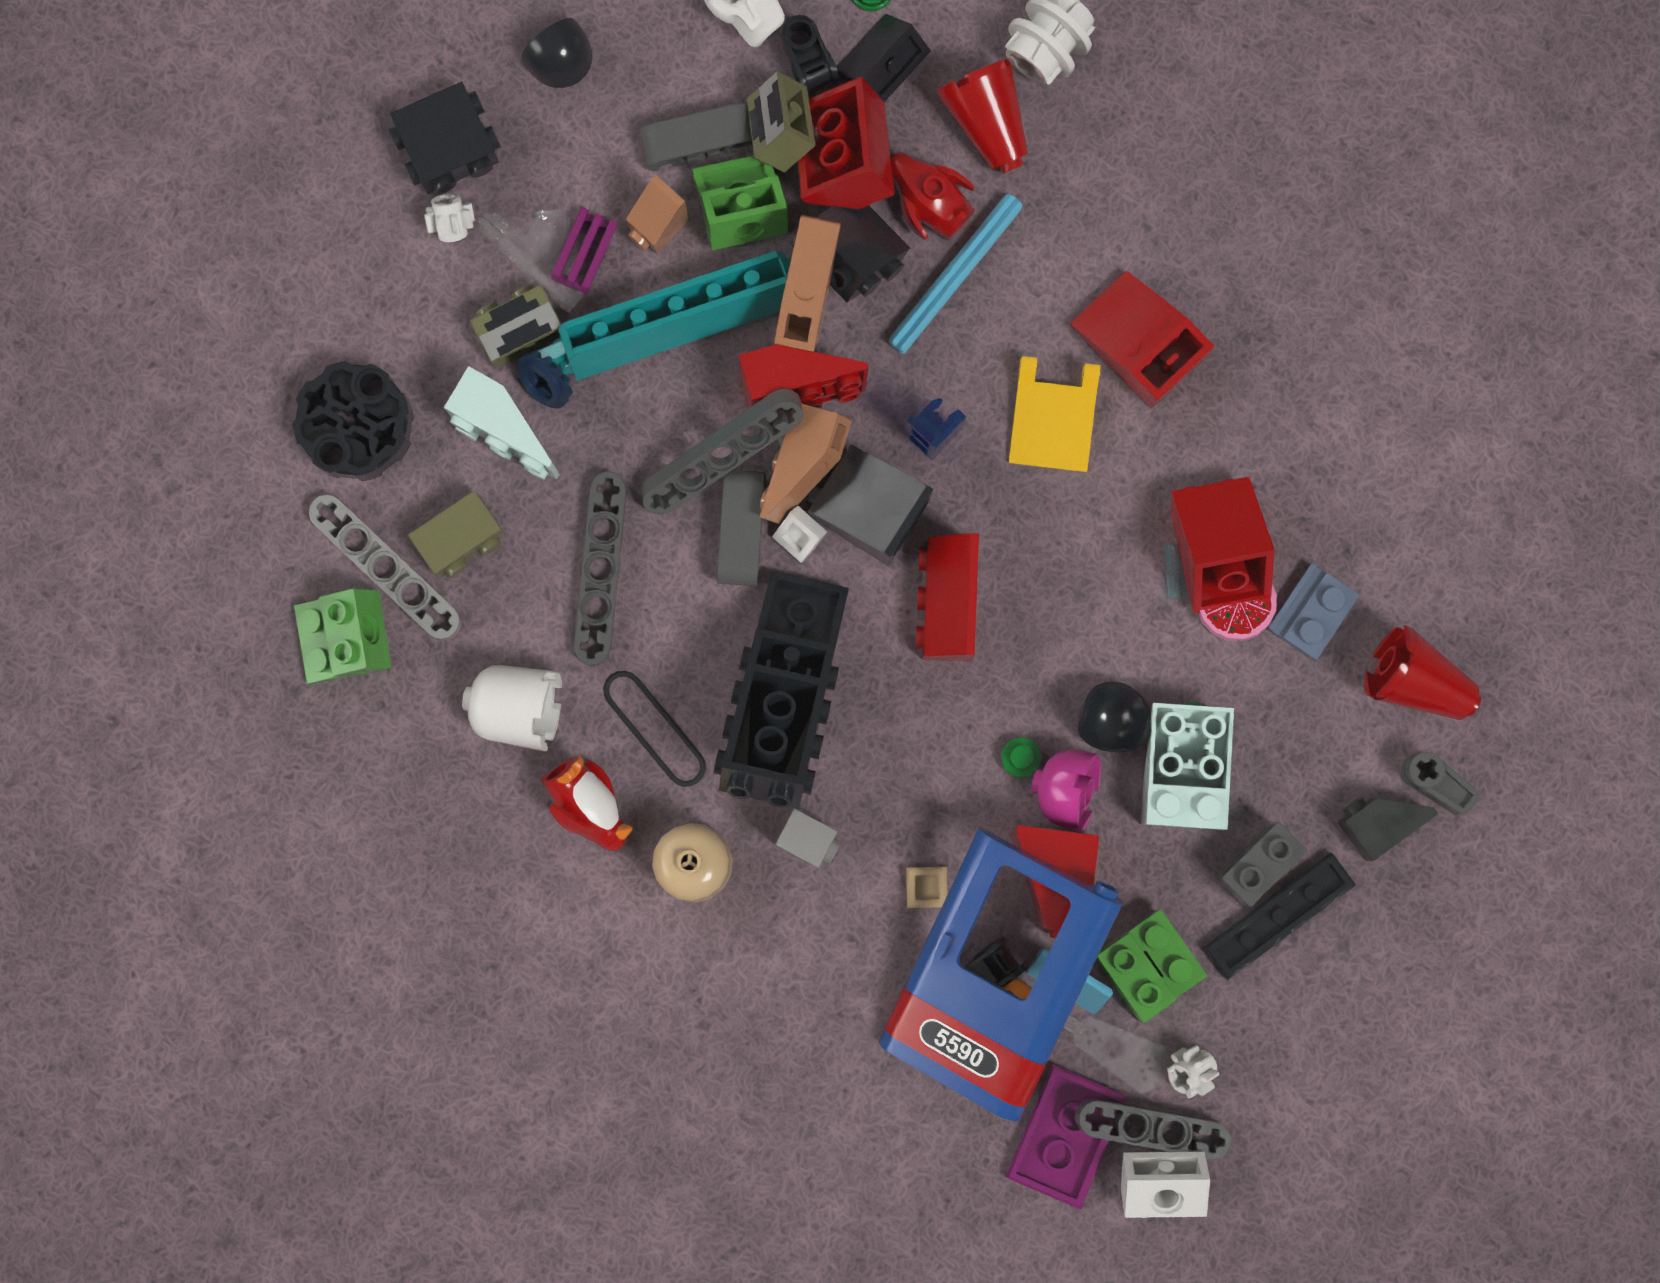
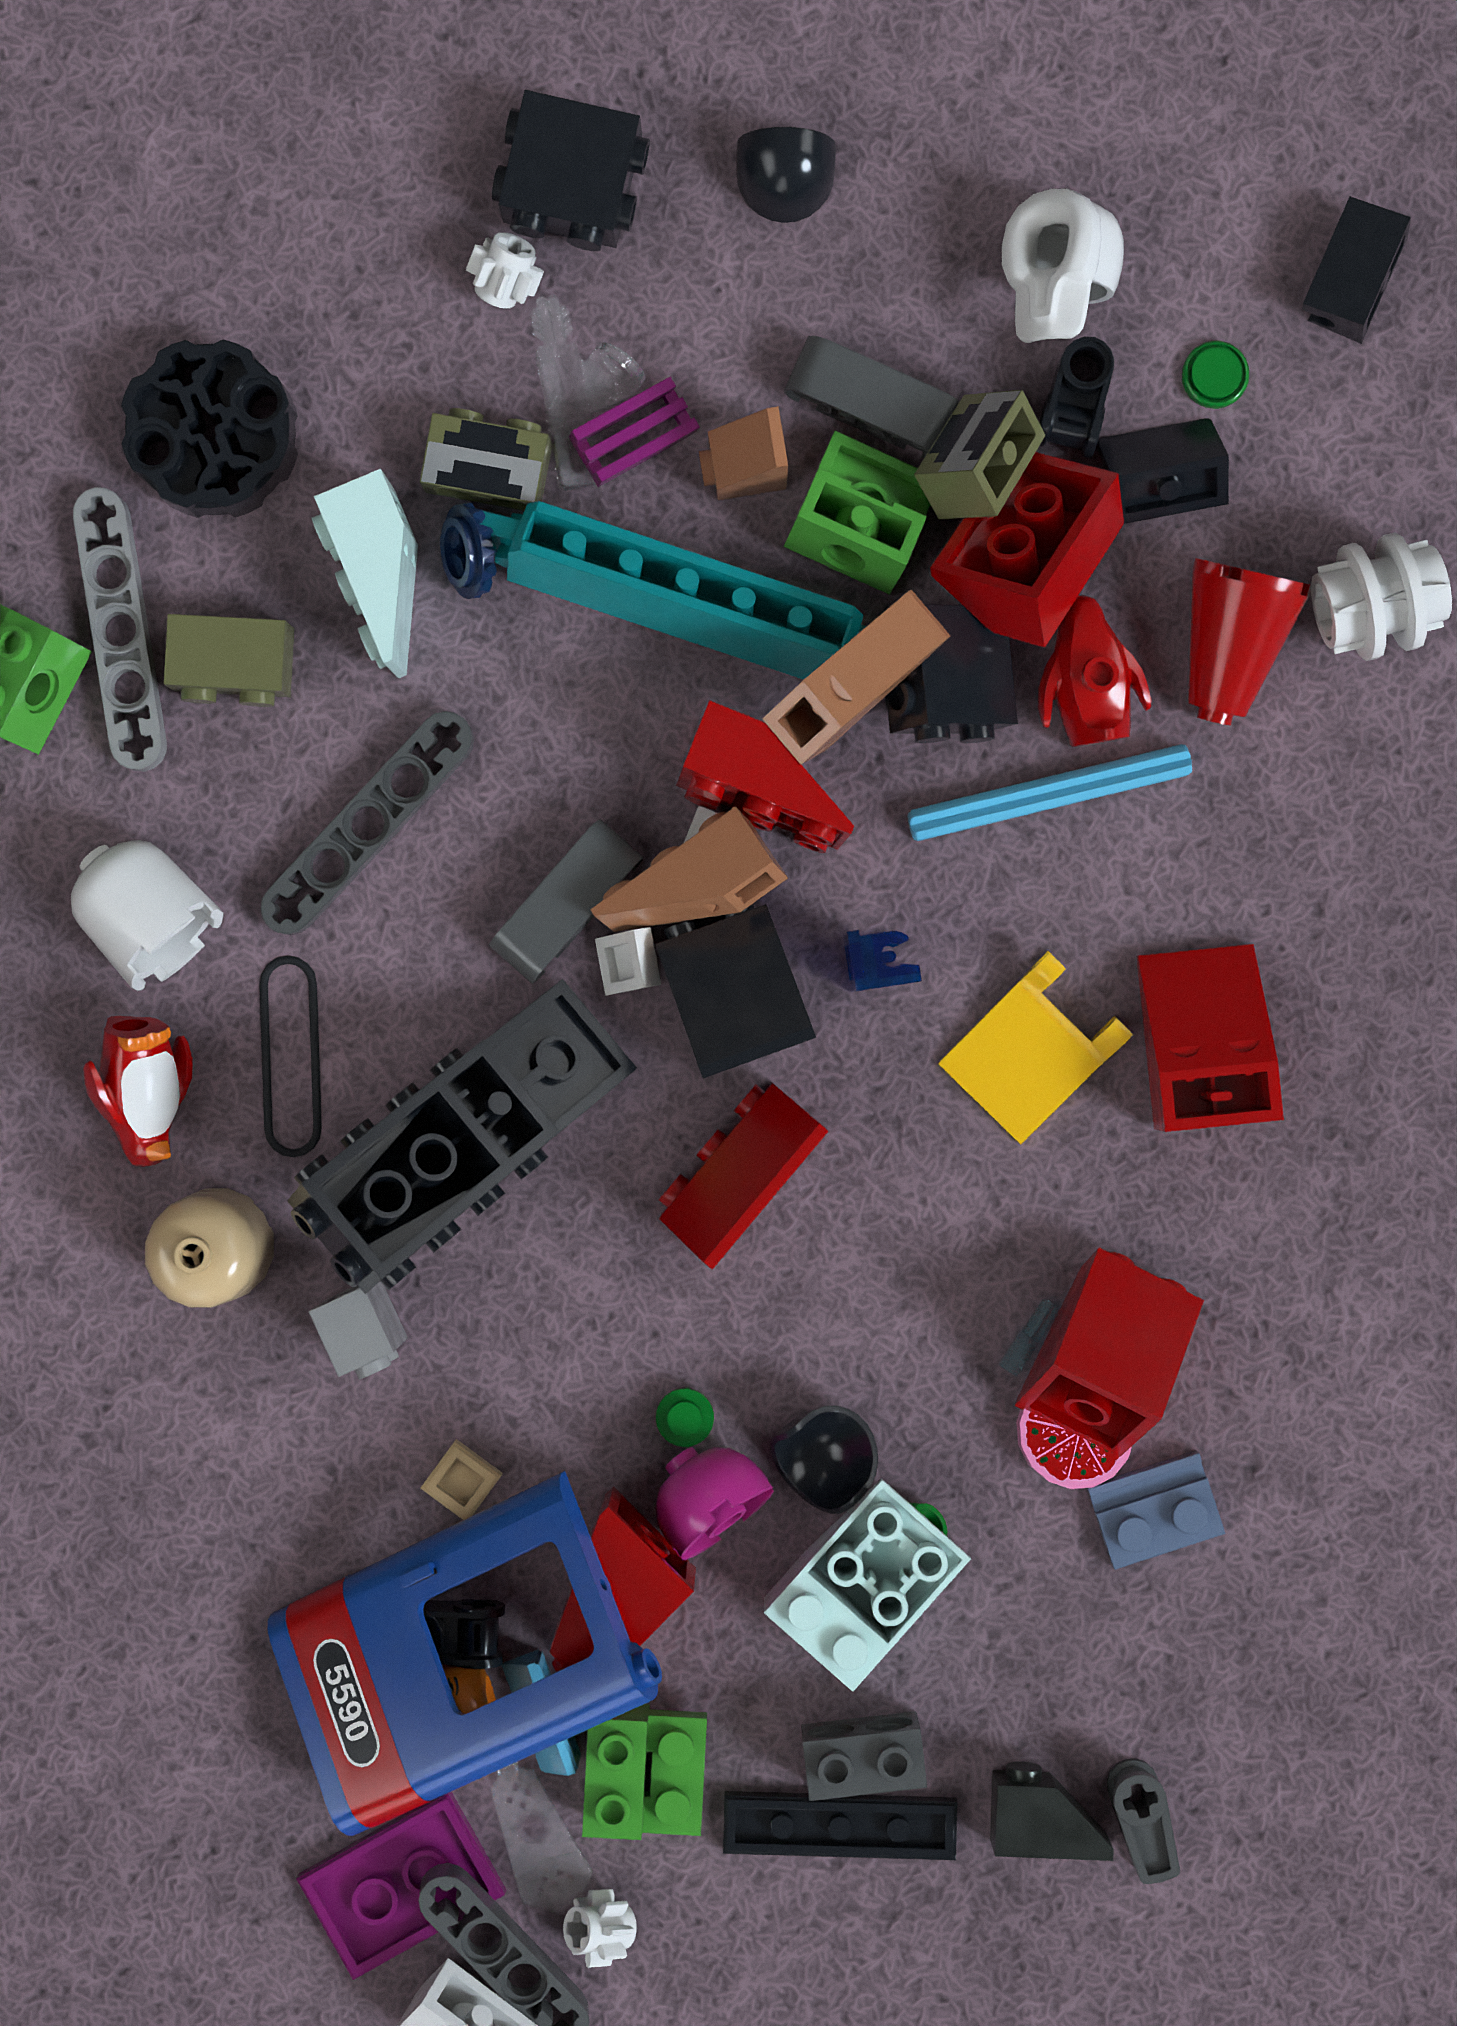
camera: 40 degrees right, 5 degrees up
(730, 437) = (697, 803): dark grey beam -> none
(1420, 677) = (1216, 1684): red cone -> none

